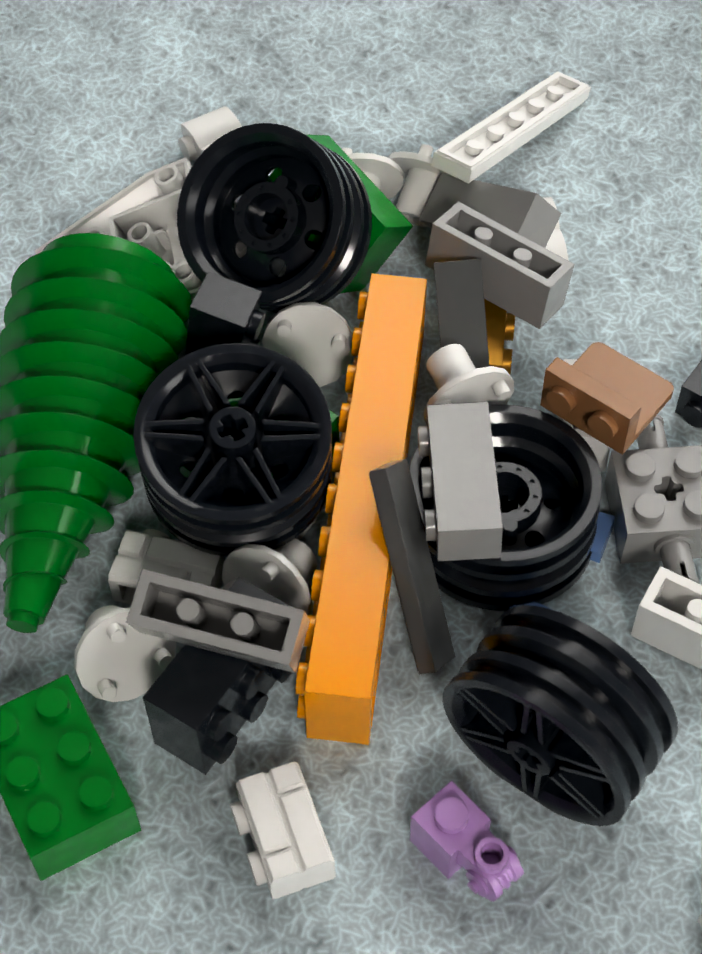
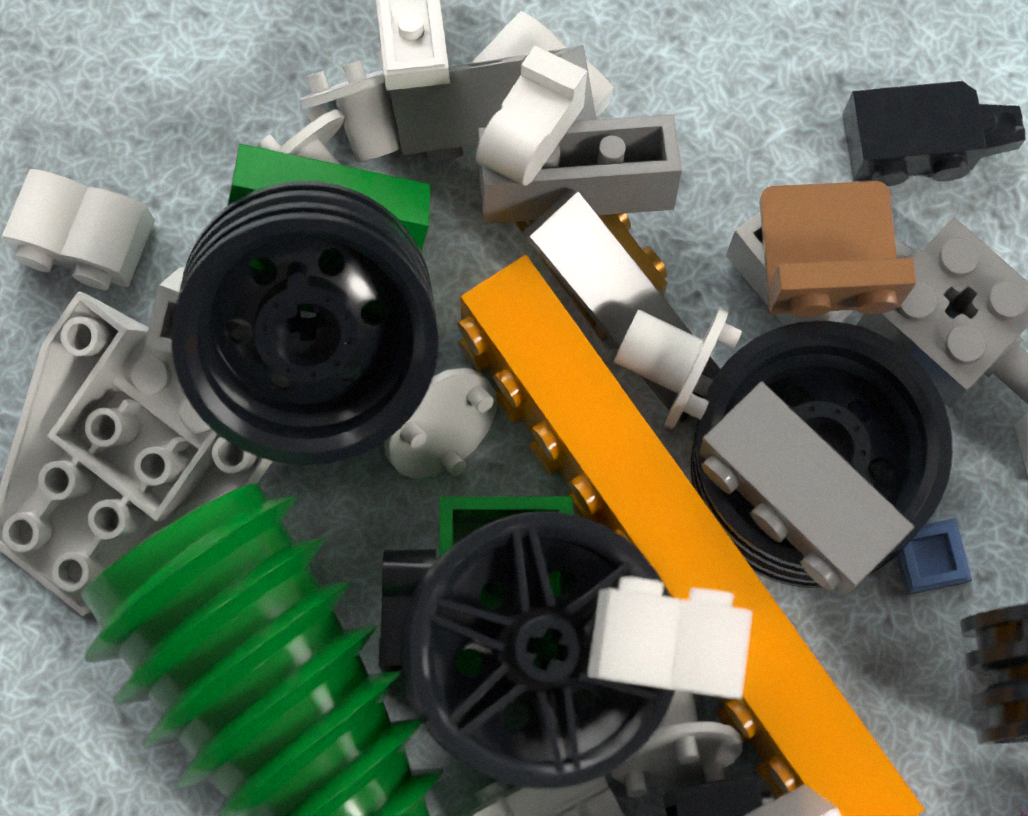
camera: 45 degrees left, 20 degrees up
(224, 314) = (361, 492): black hinge -> none
(299, 467) = (669, 640): none -> white brick
(412, 566) = (812, 614): dark grey tile -> none
(488, 205) = (533, 116): none -> white leg

